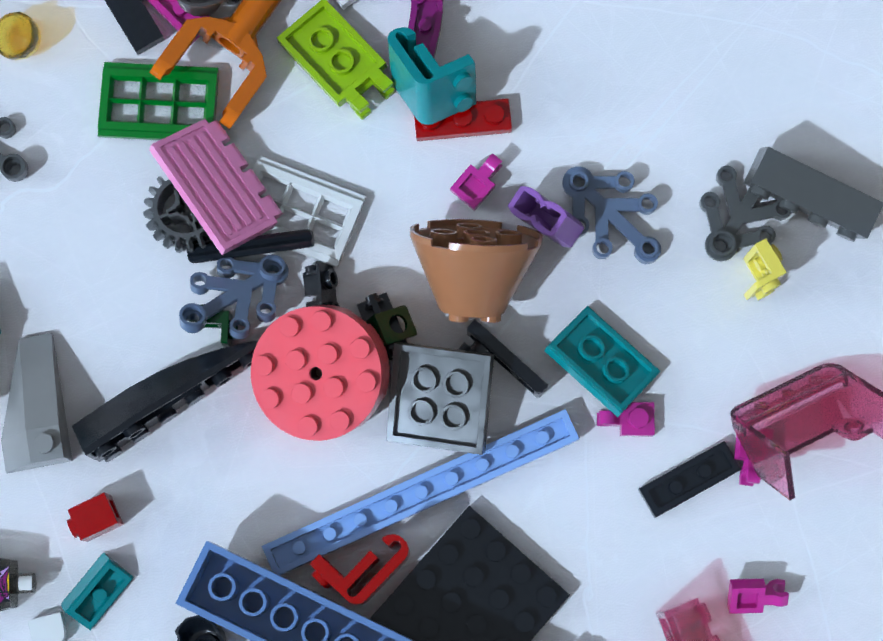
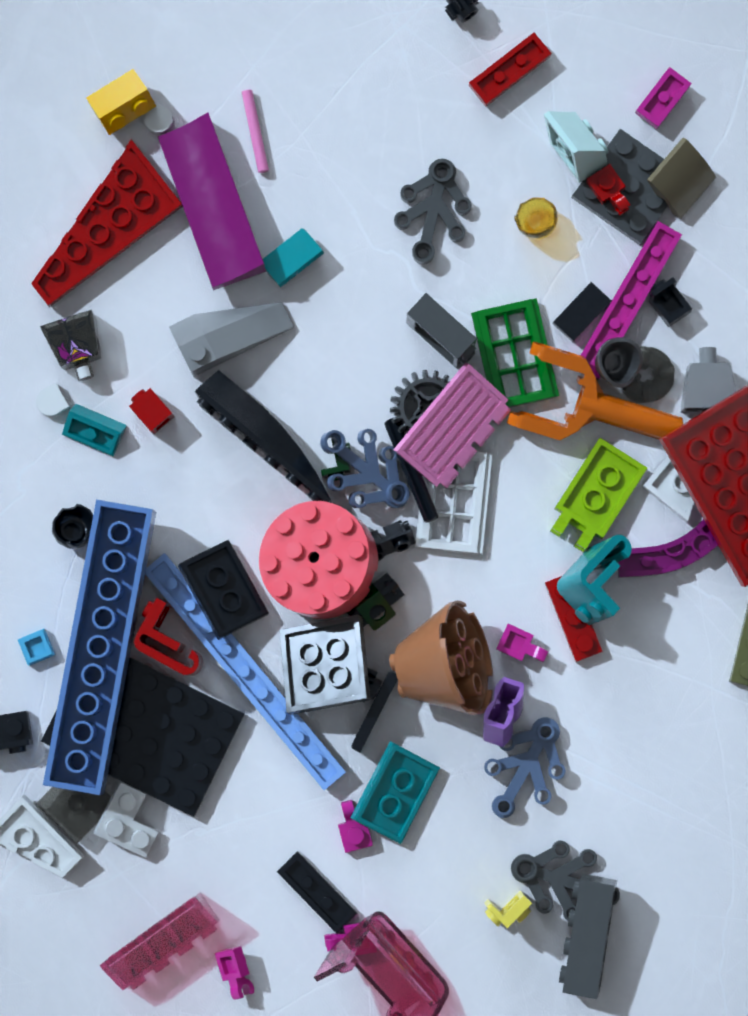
camera: 75 degrees right, 5 degrees up
(106, 167) = (441, 331): none -> dark grey window
(322, 491) = (223, 589): none -> black tile

